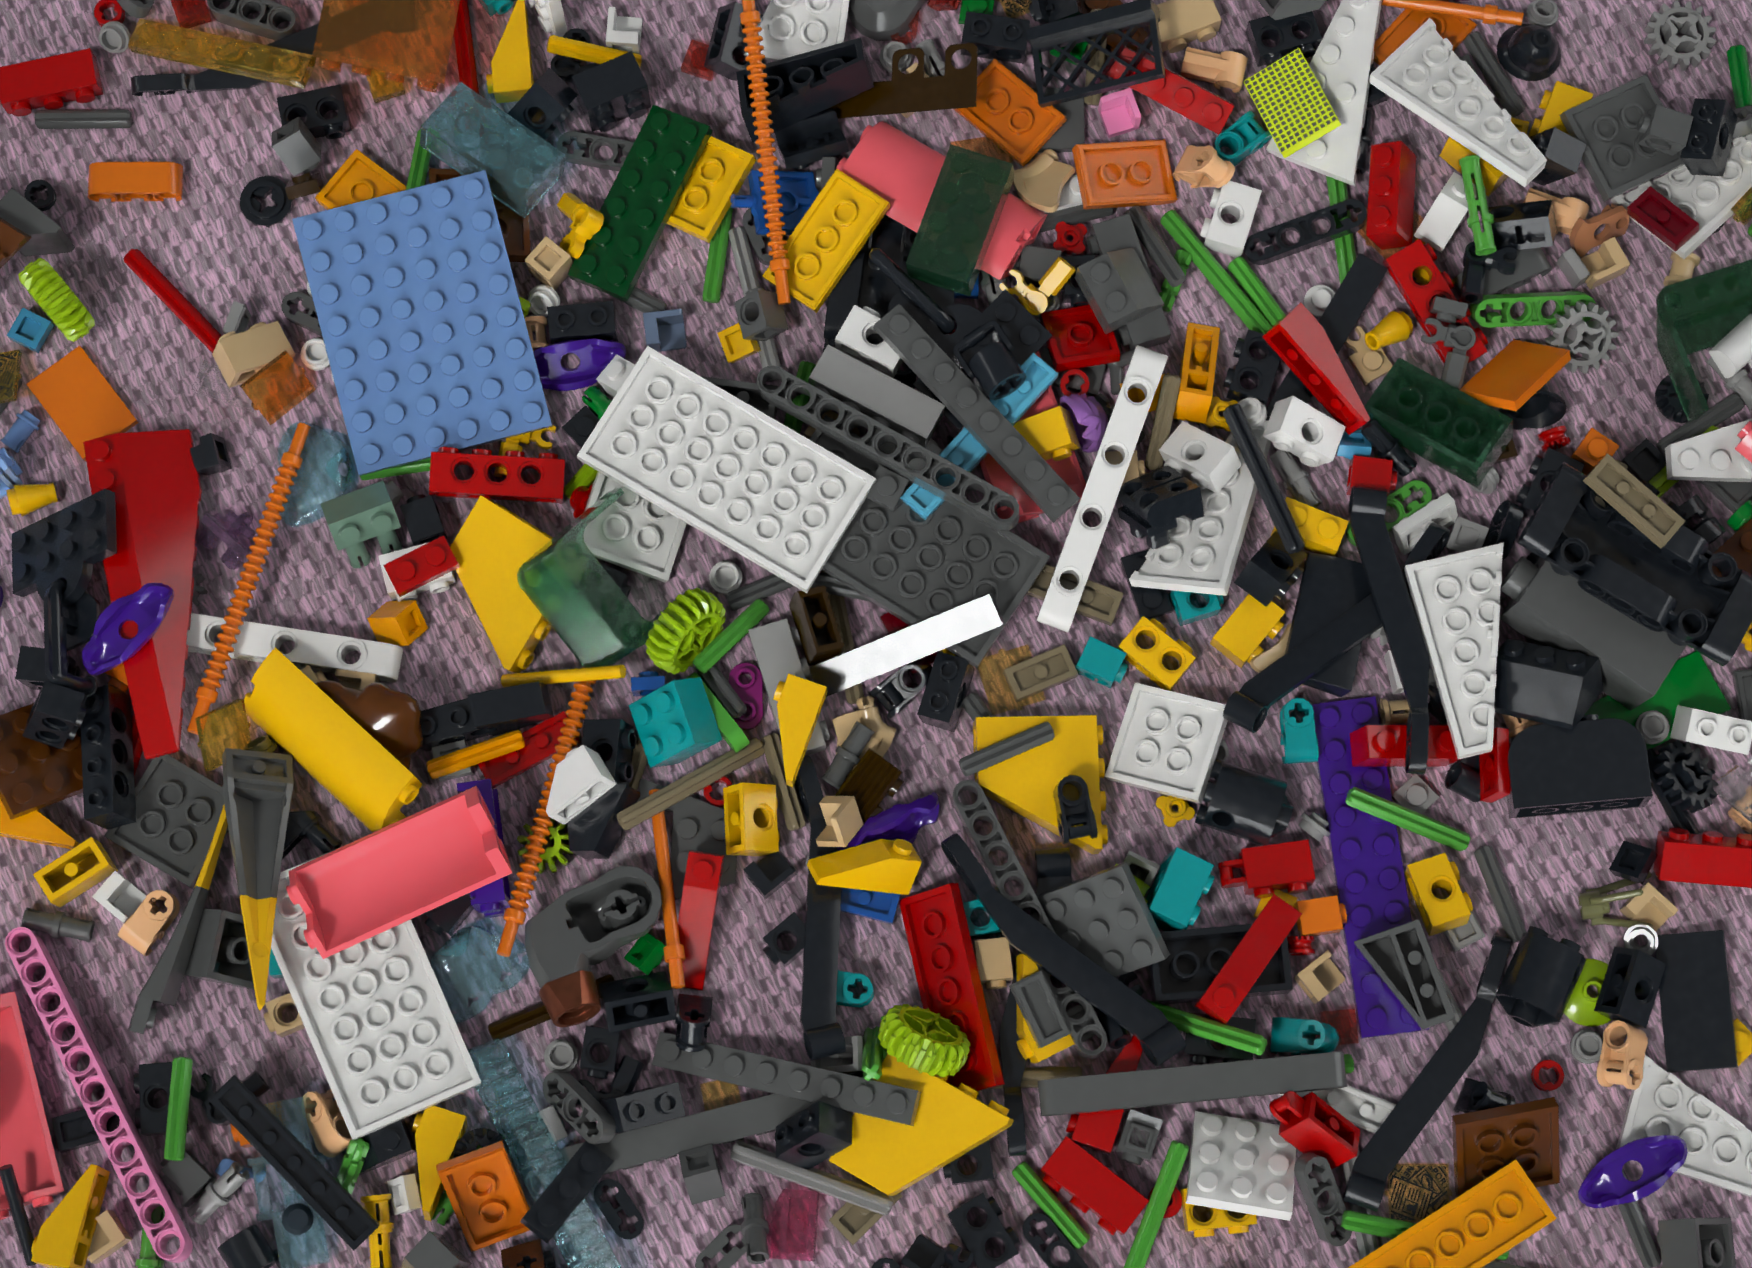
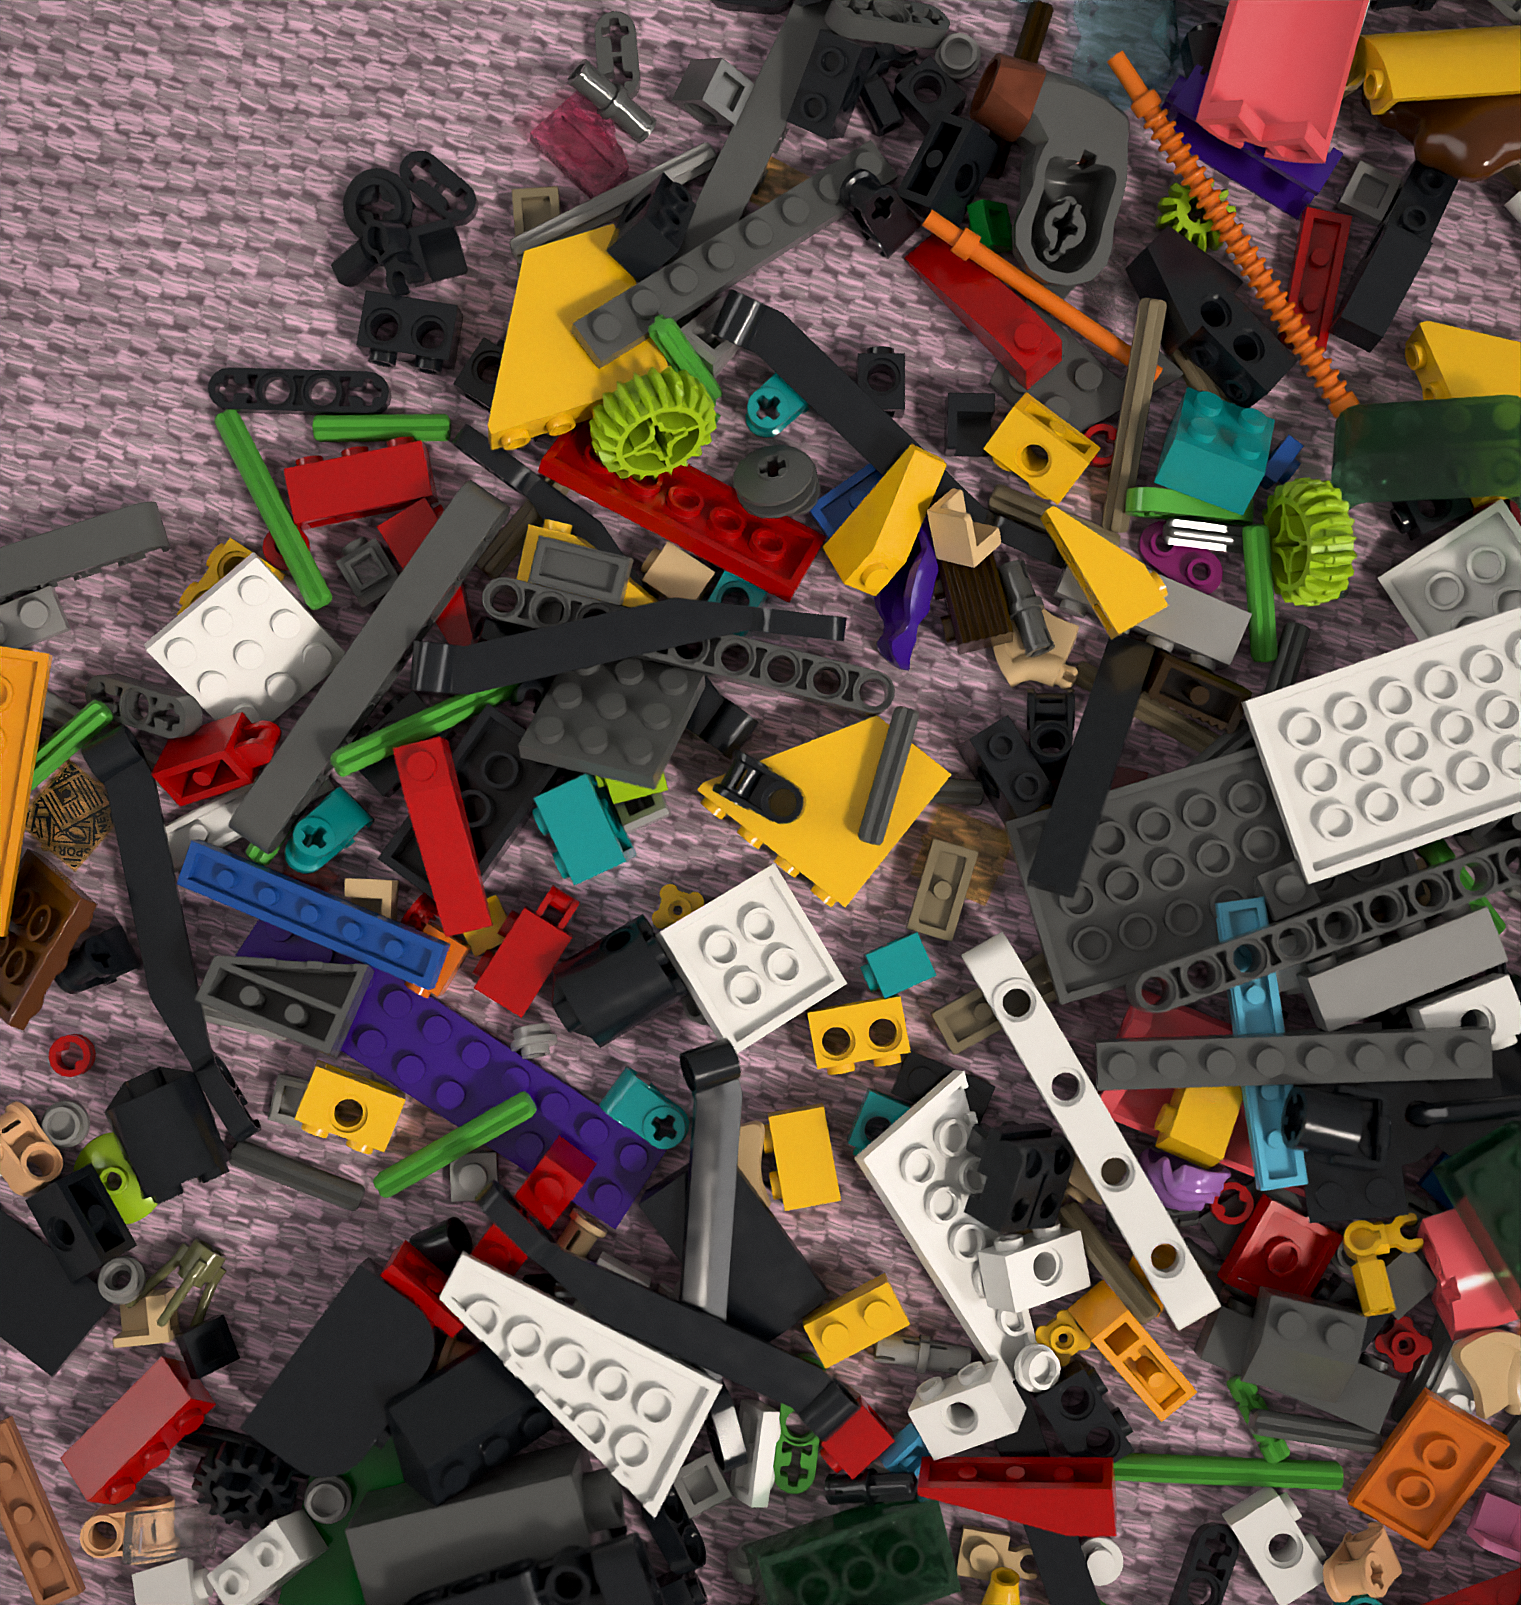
camera: 130 degrees right, 10 degrees up
(475, 754) = (1356, 216): light orange axle -> none
(565, 675) = (1364, 376): yellow bar -> none
(577, 784) = (1234, 286): white slope -> none
(725, 577) = (1329, 645): white plate -> none
(898, 936) = (777, 482): none -> dark grey piece
(1255, 290) = (1171, 1499): bright green axle -> none
(1264, 479) = (950, 1316): black axle -> none
(1271, 571) = (844, 1235): black brick -> none
(1353, 1002) = (313, 914): none -> blue plate

